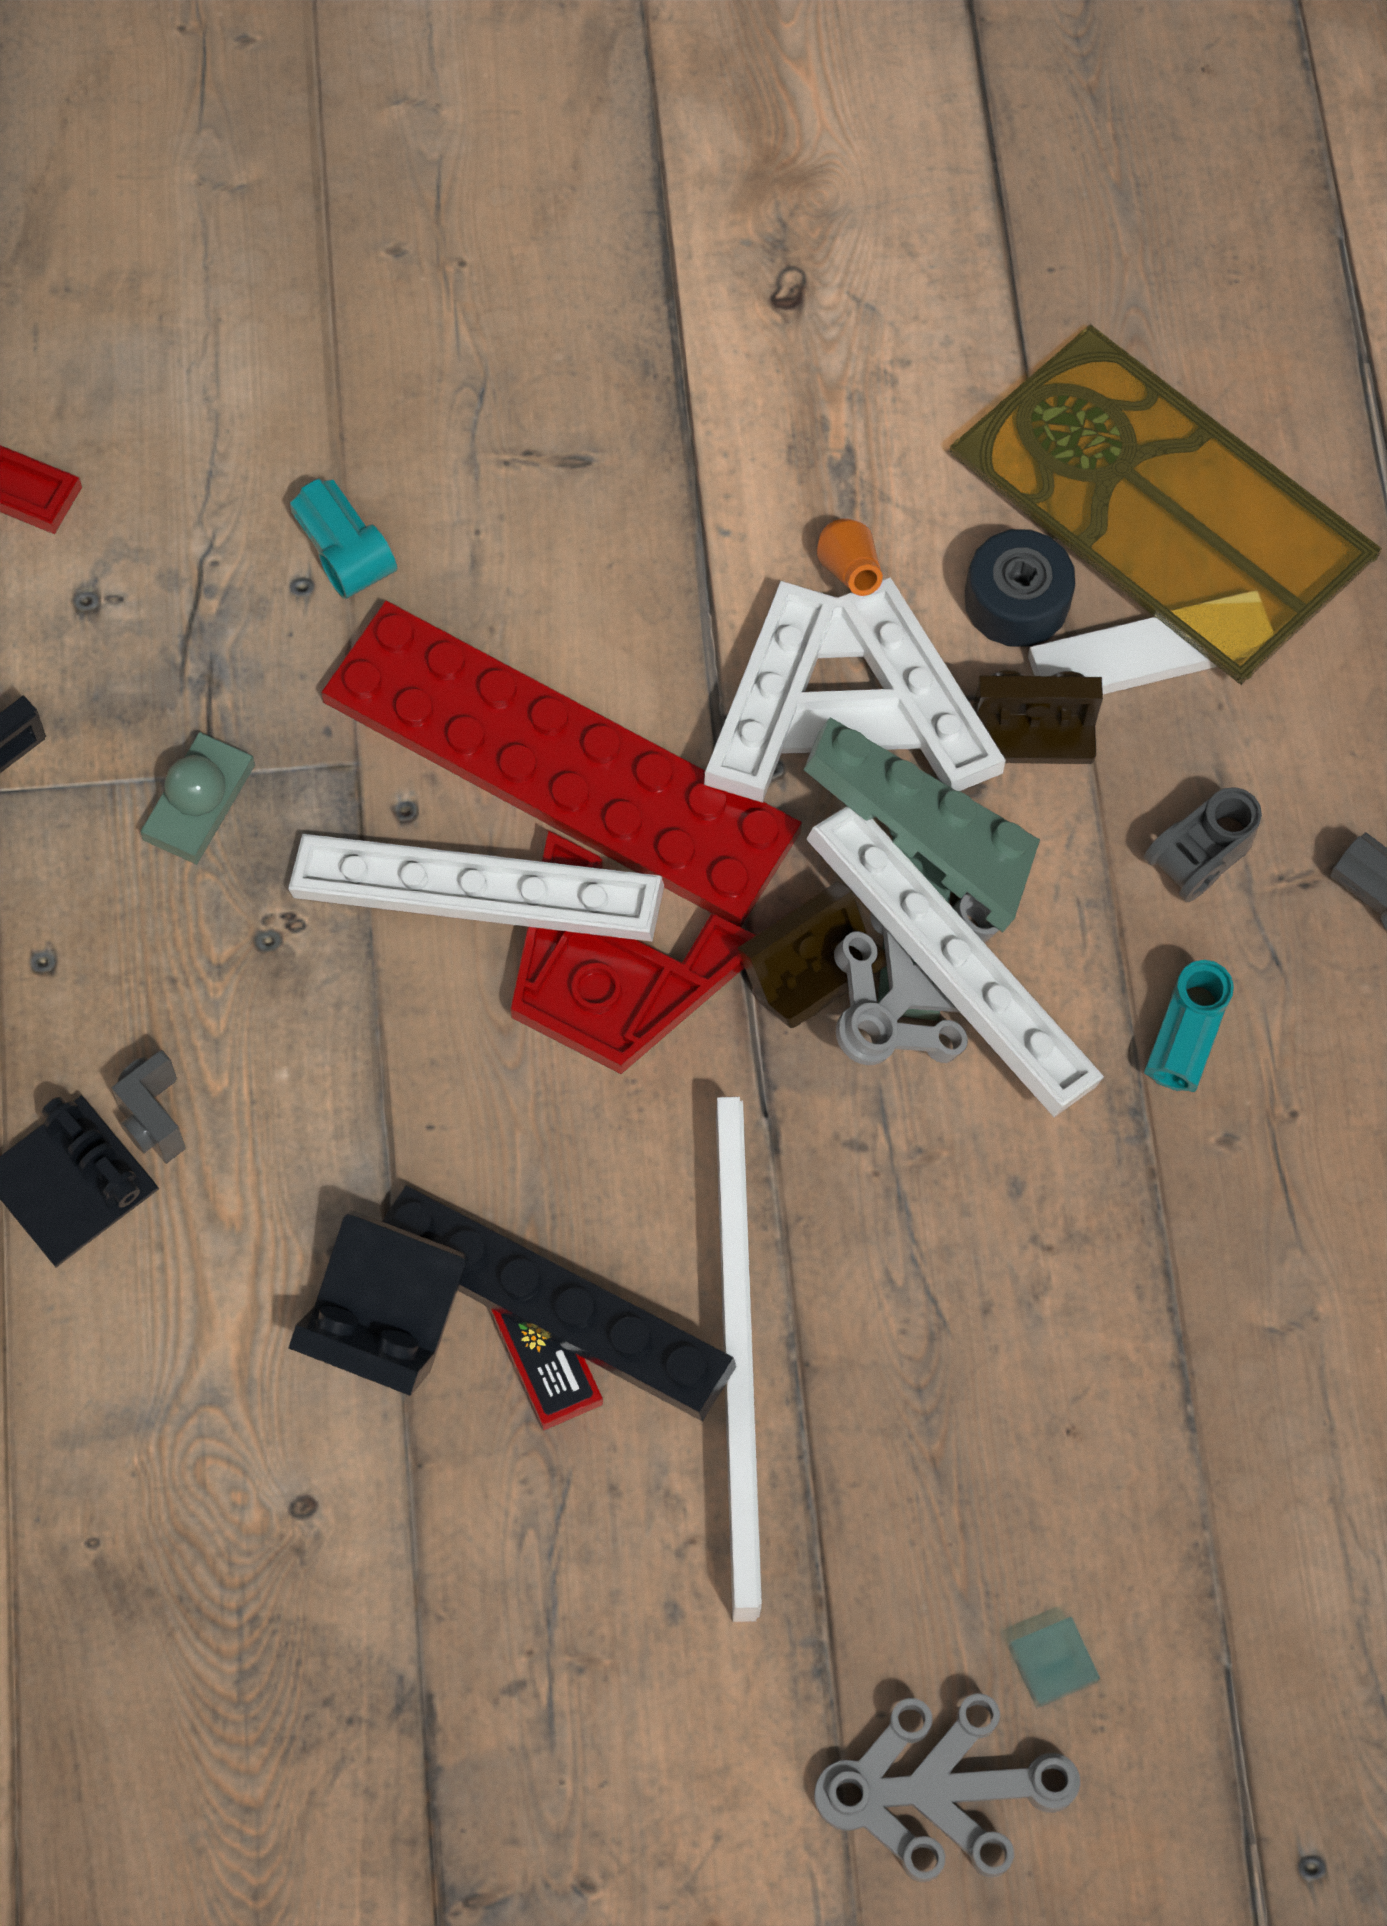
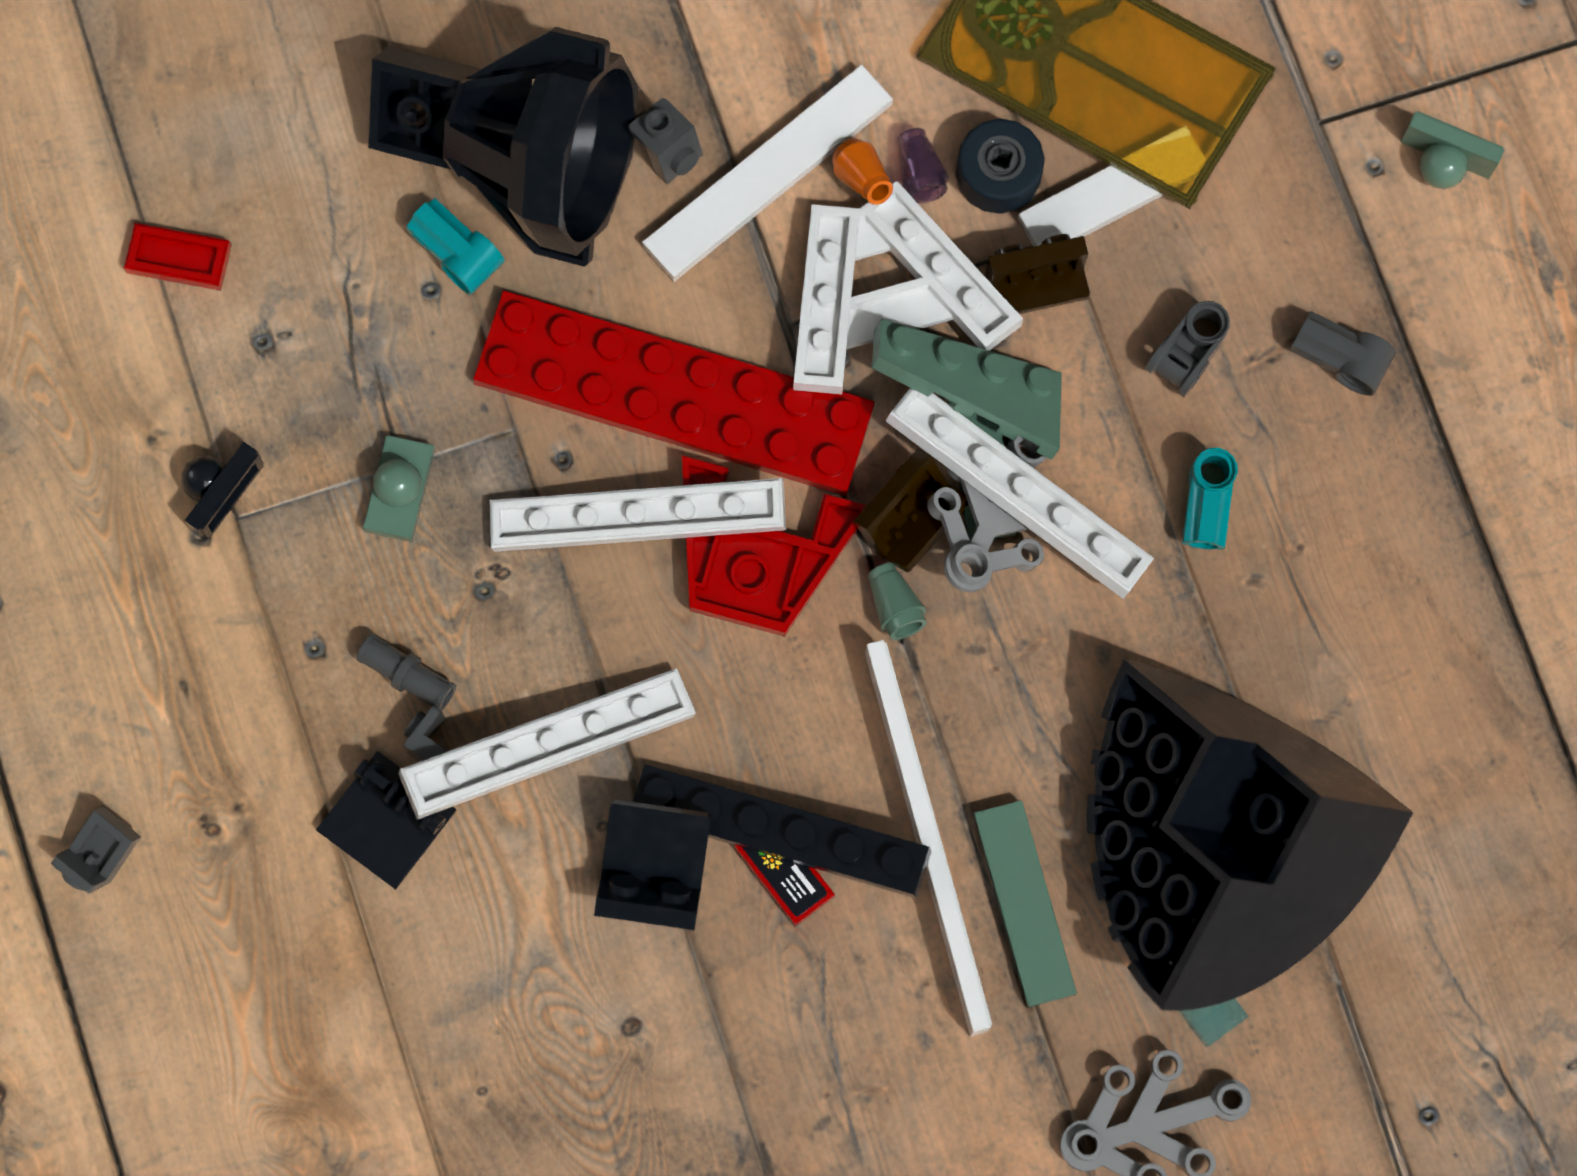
camera: 15 degrees left, 10 degrees up
(143, 1009) = (406, 672): none -> dark grey pin
(288, 1128) = (546, 743): none -> white tile
(431, 397) = (518, 134): none -> black plate
(627, 474) = (668, 139): none -> dark grey bracket
(735, 540) = (767, 173): none -> white tile
(768, 1063) = (896, 603): none -> sand green cone
(842, 1470) = (1024, 904): none -> sand green tile
(924, 570) = (920, 167): none -> clear purple cone
(1117, 1439) = (1224, 838): none -> black brick

